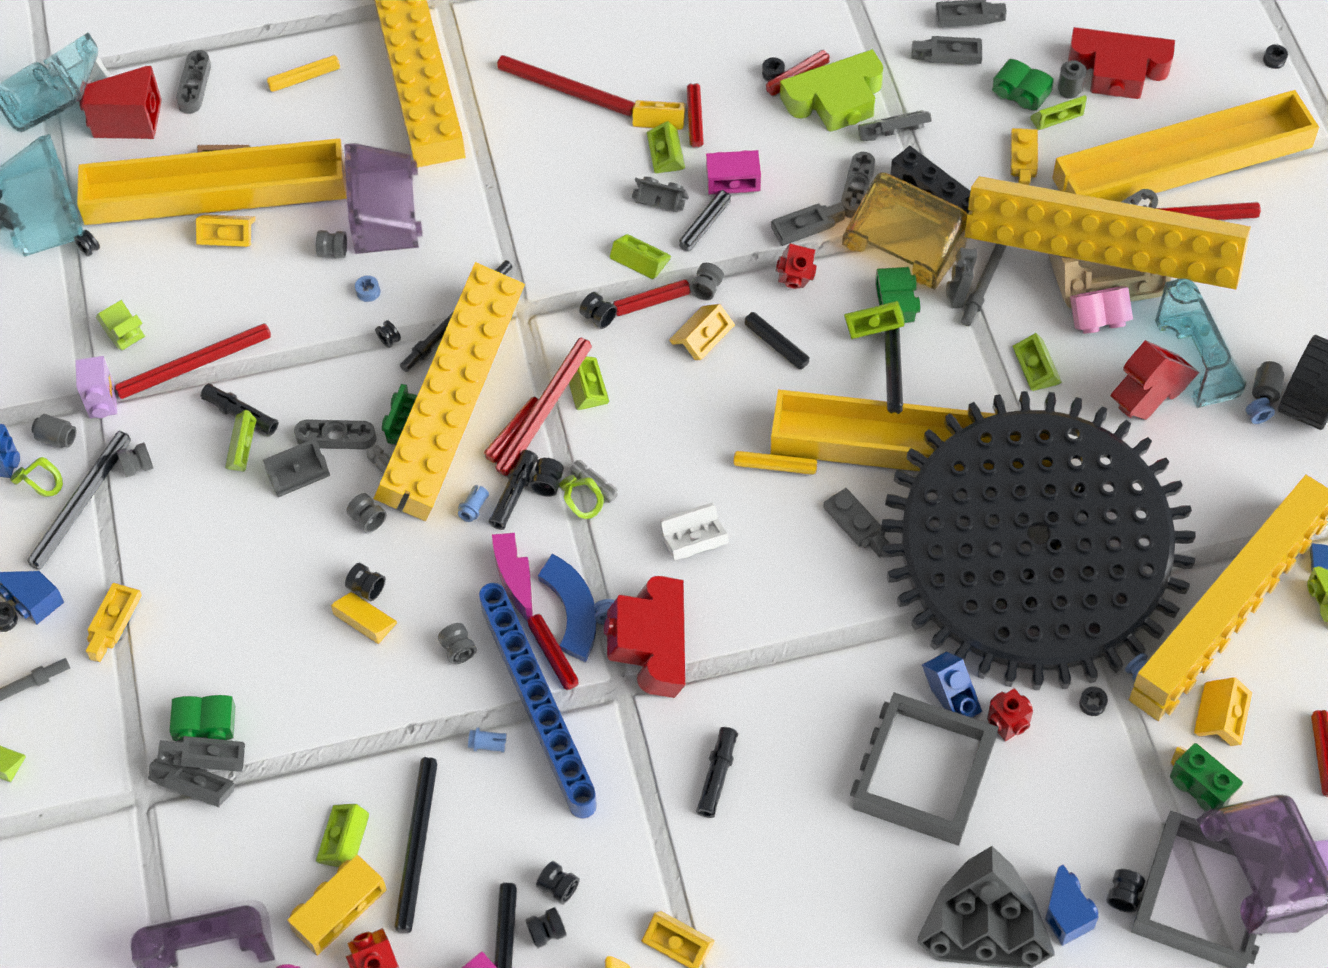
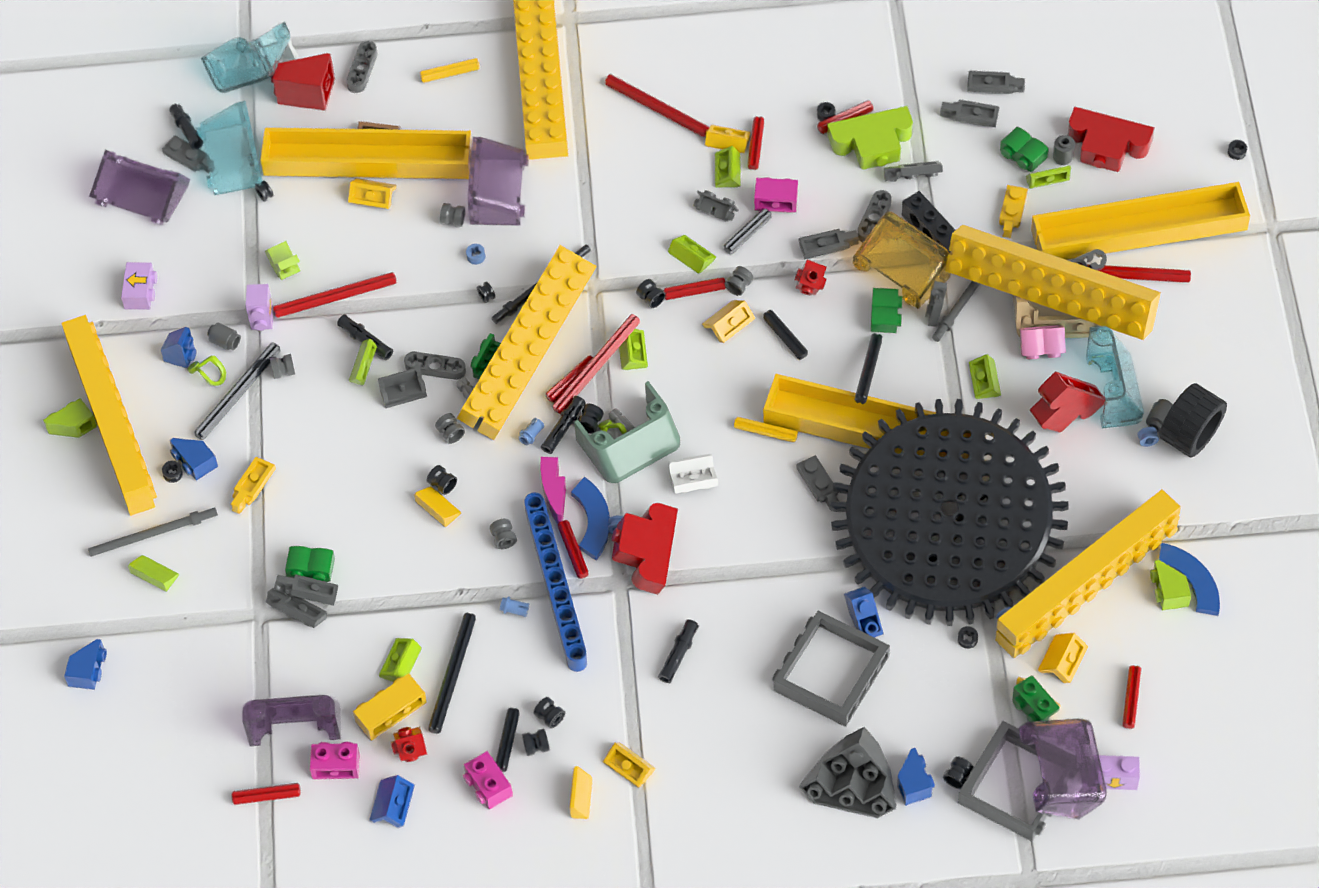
camera: 10 degrees right, 0 degrees up
(613, 509) = (637, 448): none -> windscreen
(874, 320) = (862, 328): lime slope -> none
(1010, 713) = (902, 637): red brick -> none

